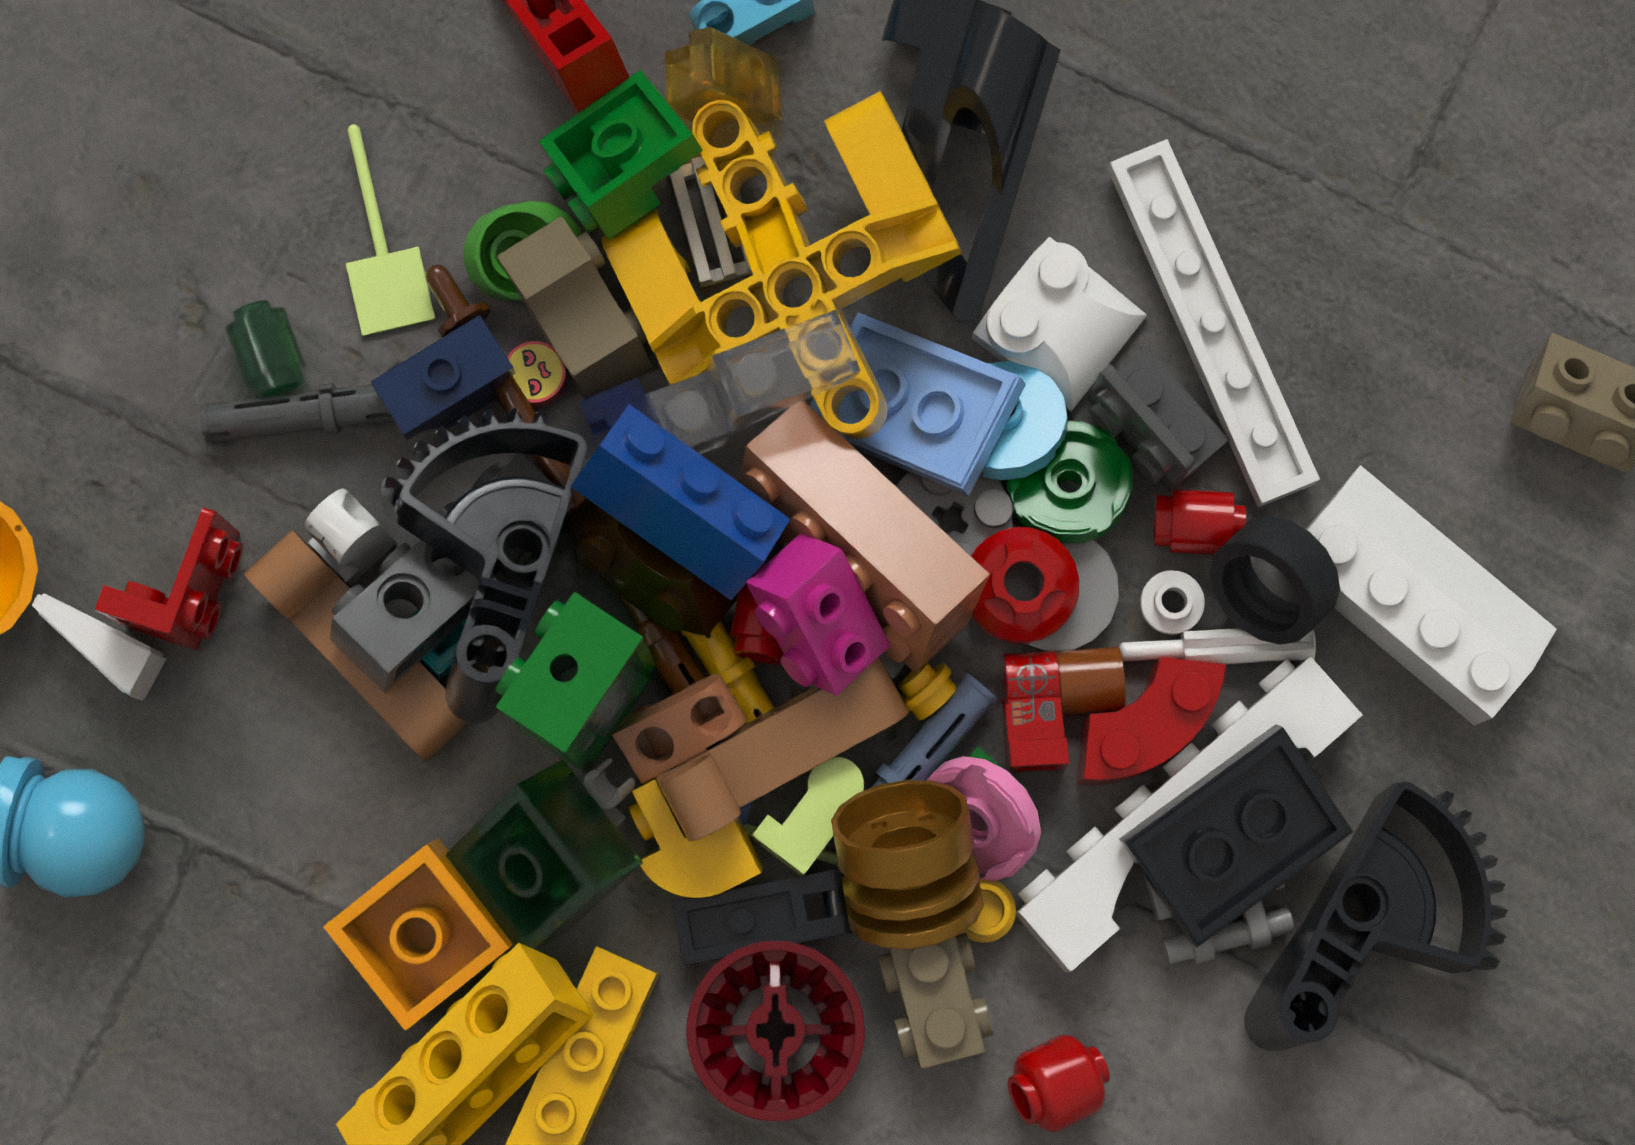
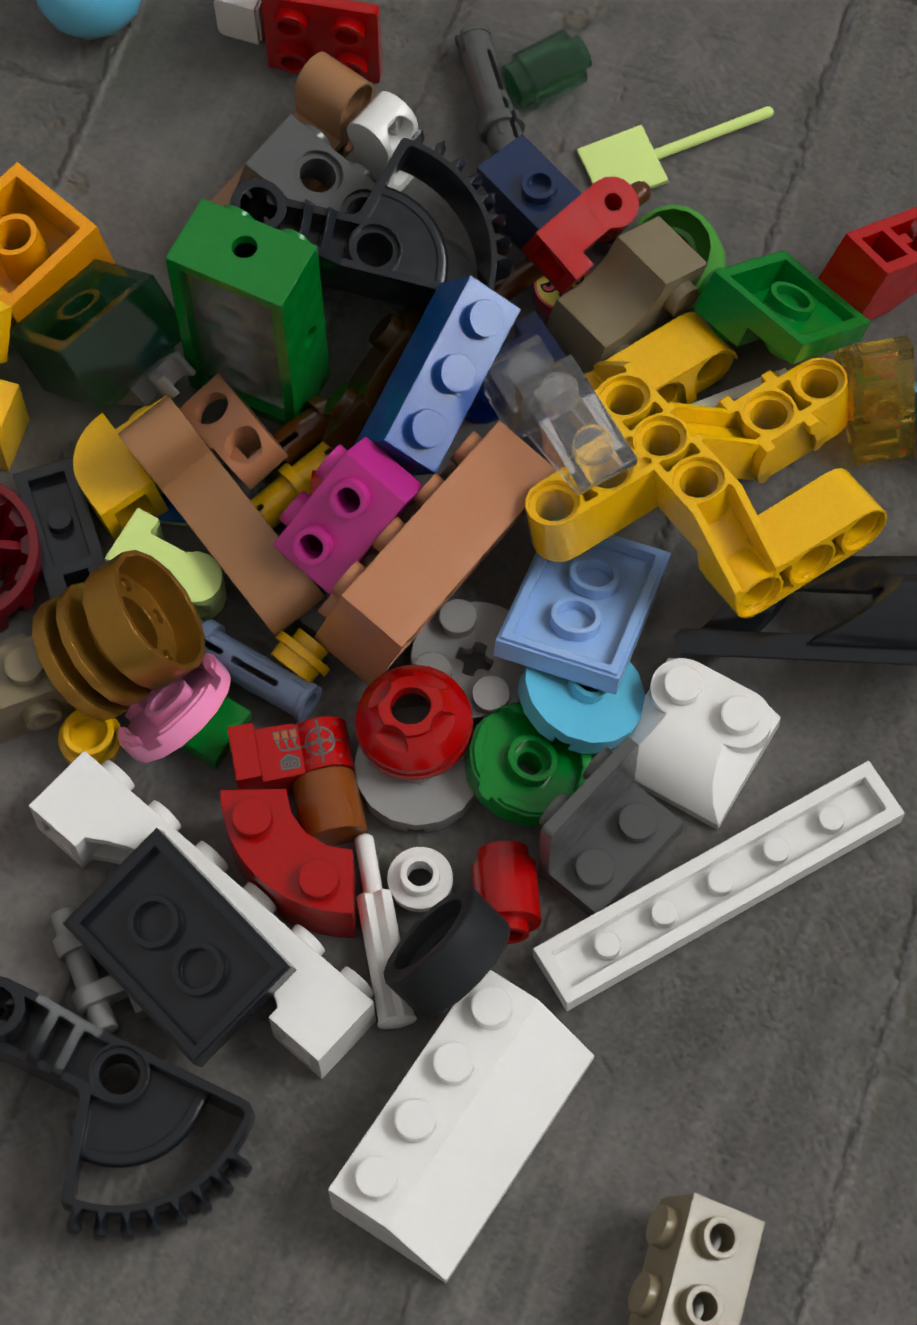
camera: 85 degrees right, 15 degrees down
(510, 336) = (590, 219): none -> red leg

